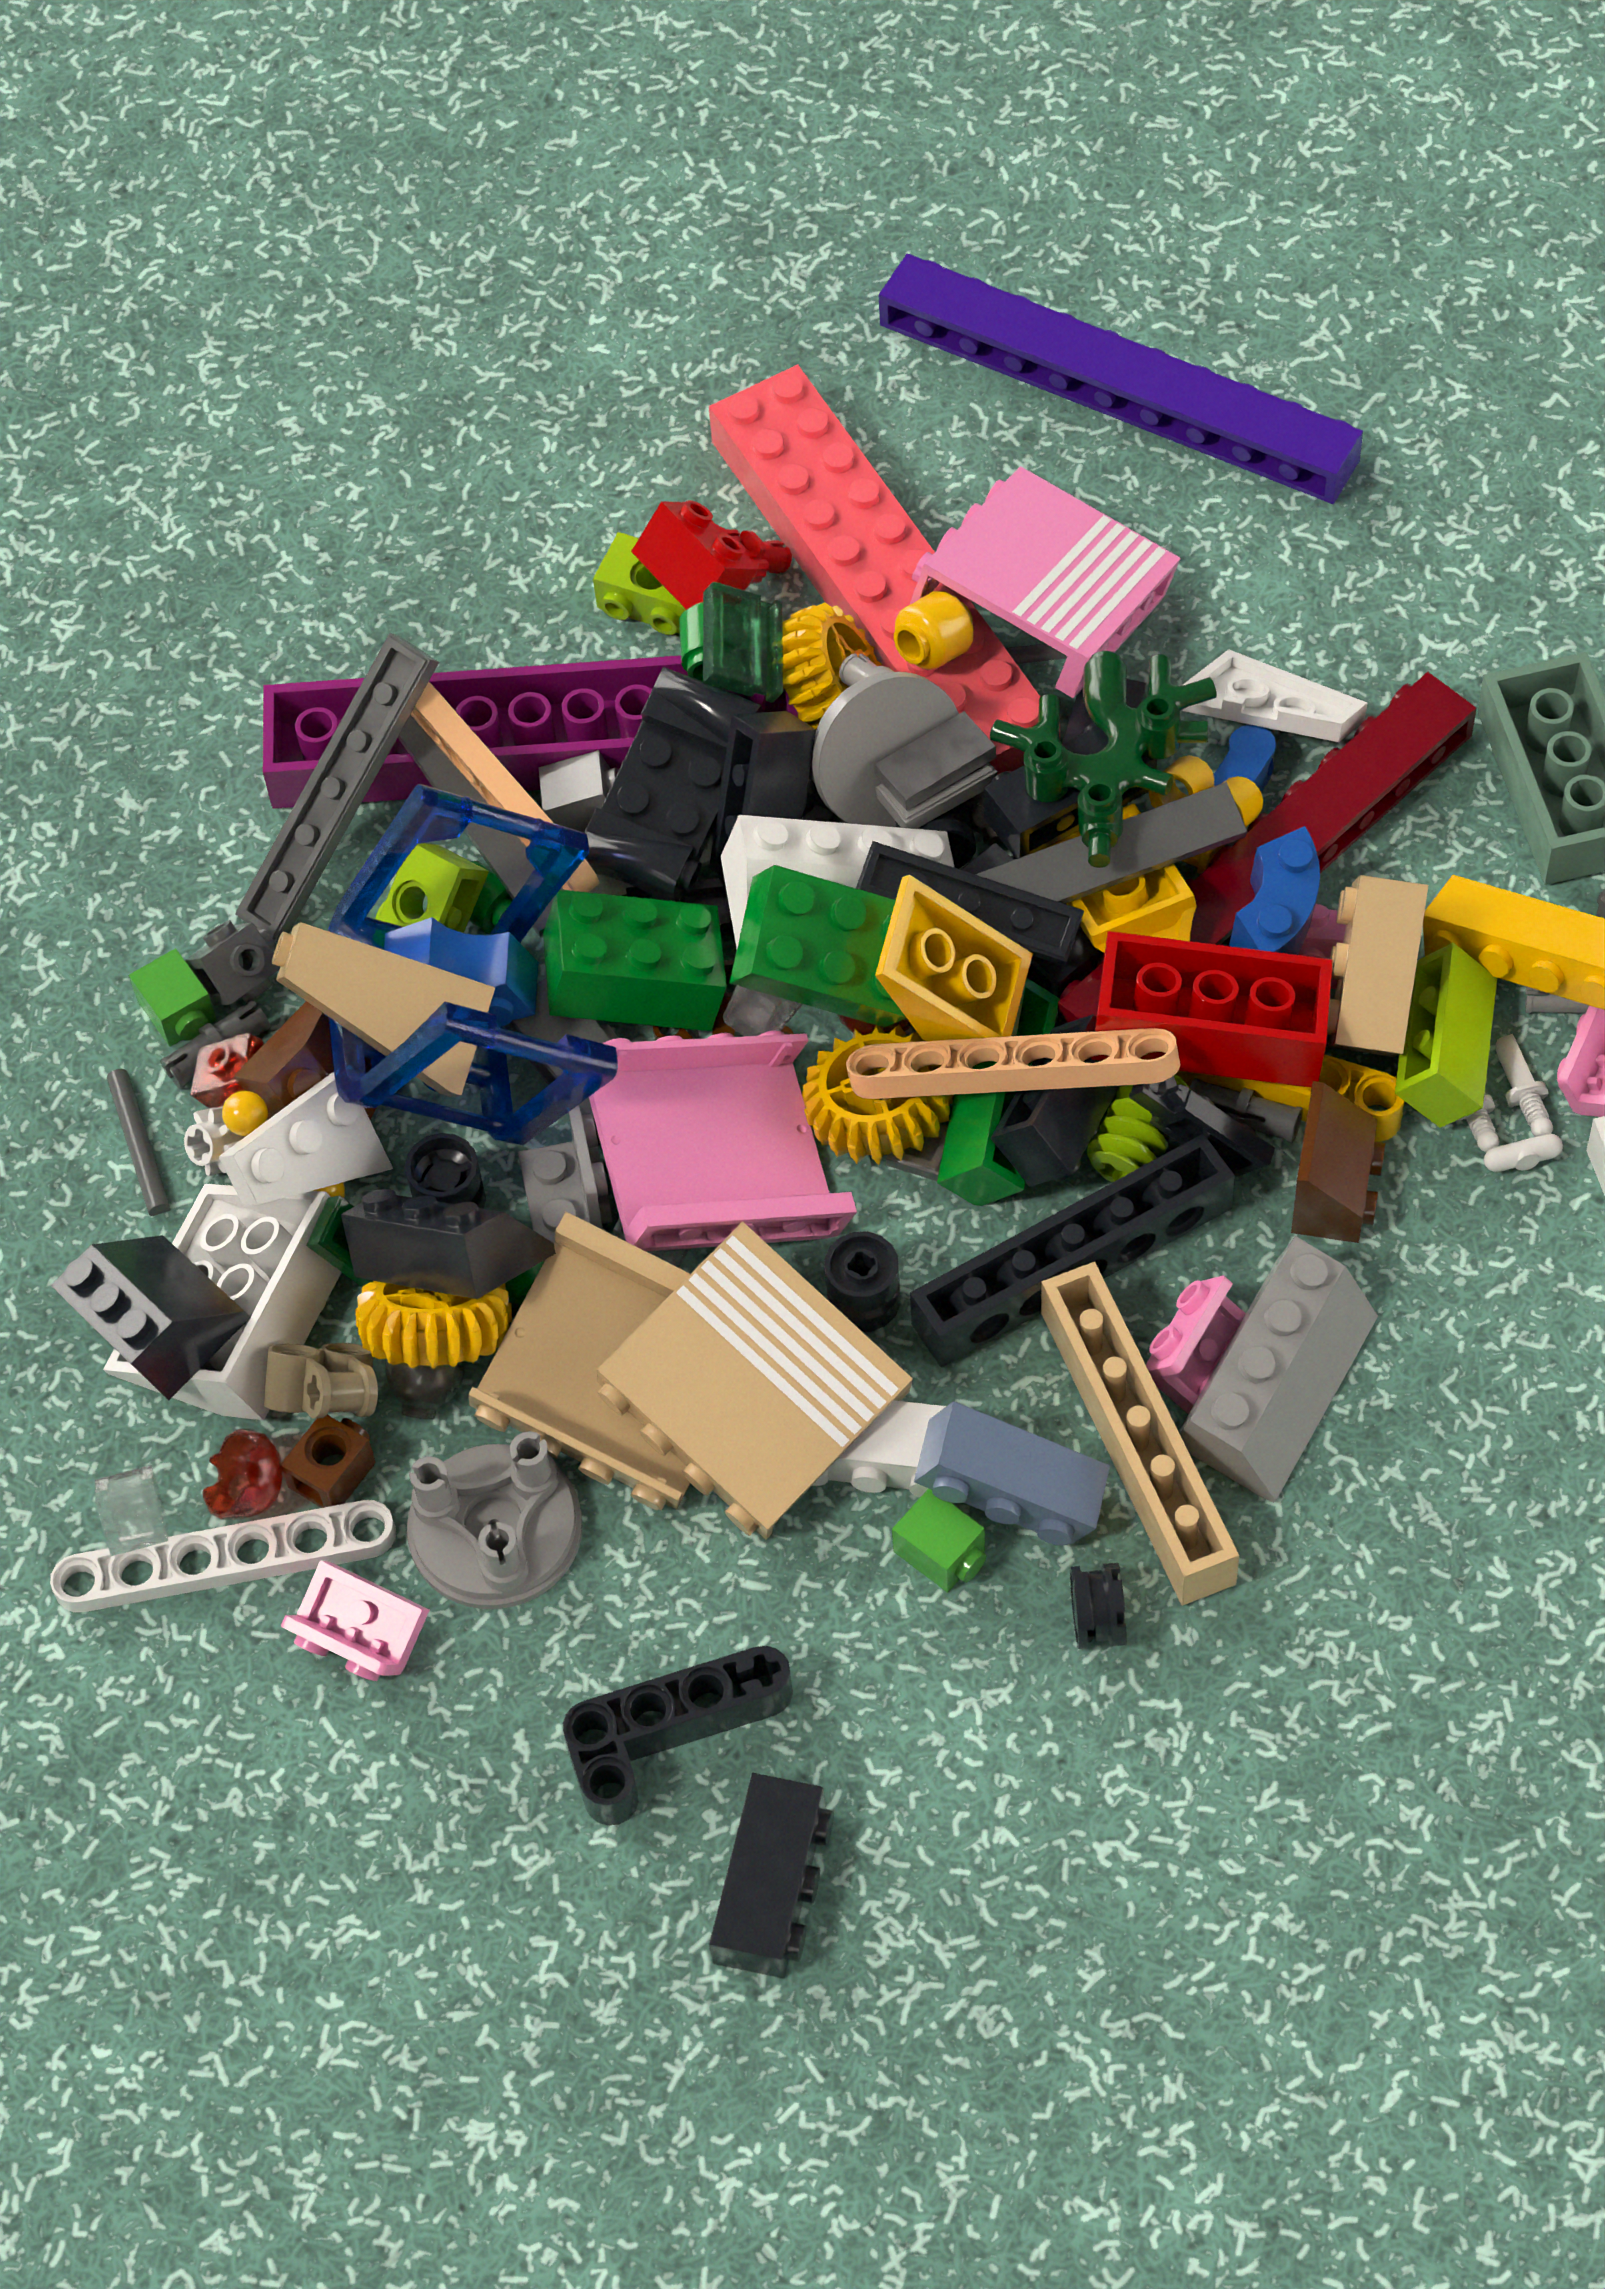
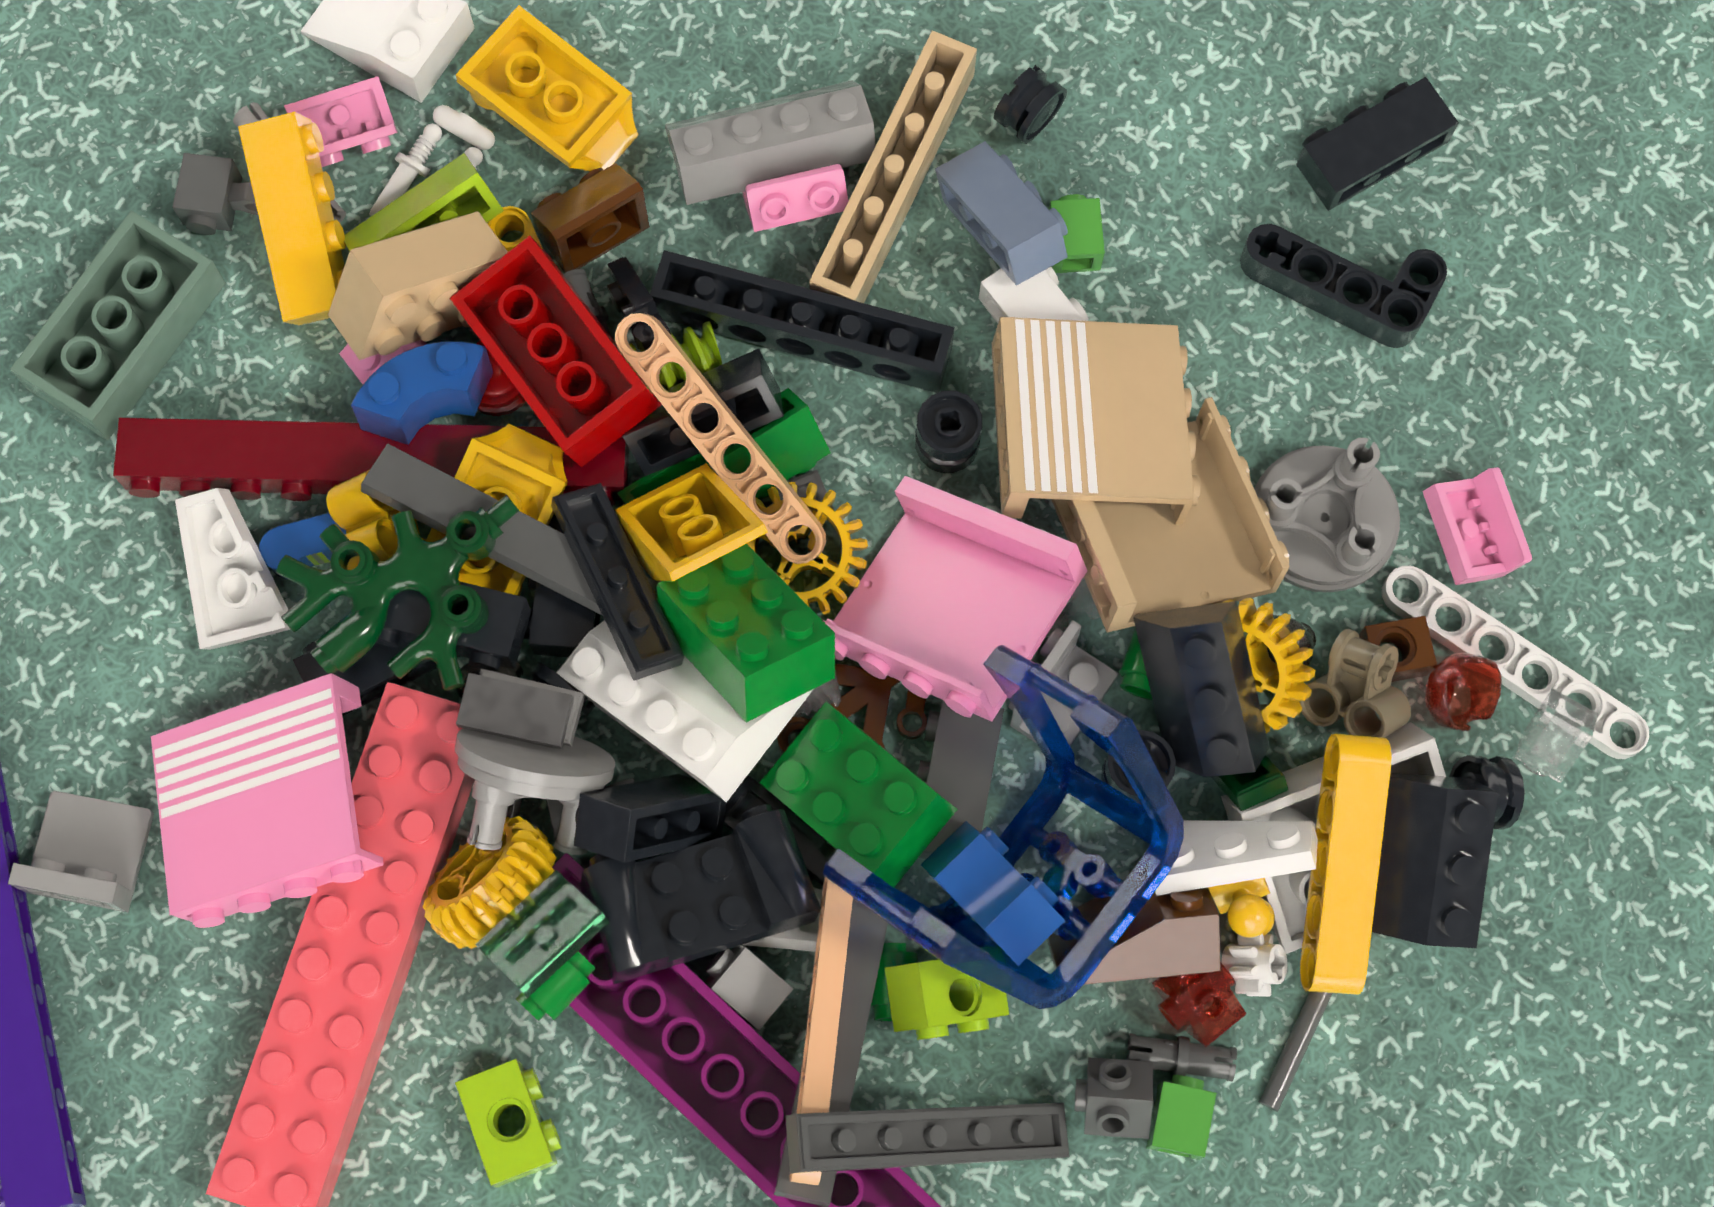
camera: 140 degrees left, 15 degrees up
(150, 1415) = (1500, 775): none -> black wheel
(211, 1237) = (1346, 865): none -> yellow beam
(378, 995) = (1087, 874): tan slope -> none
(692, 551) = (471, 1070): red brick -> none
(933, 630) = (396, 820): yellow head -> none
(1131, 468) = (86, 852): none -> light grey bracket
(1487, 1232) = (551, 93): none -> yellow slope

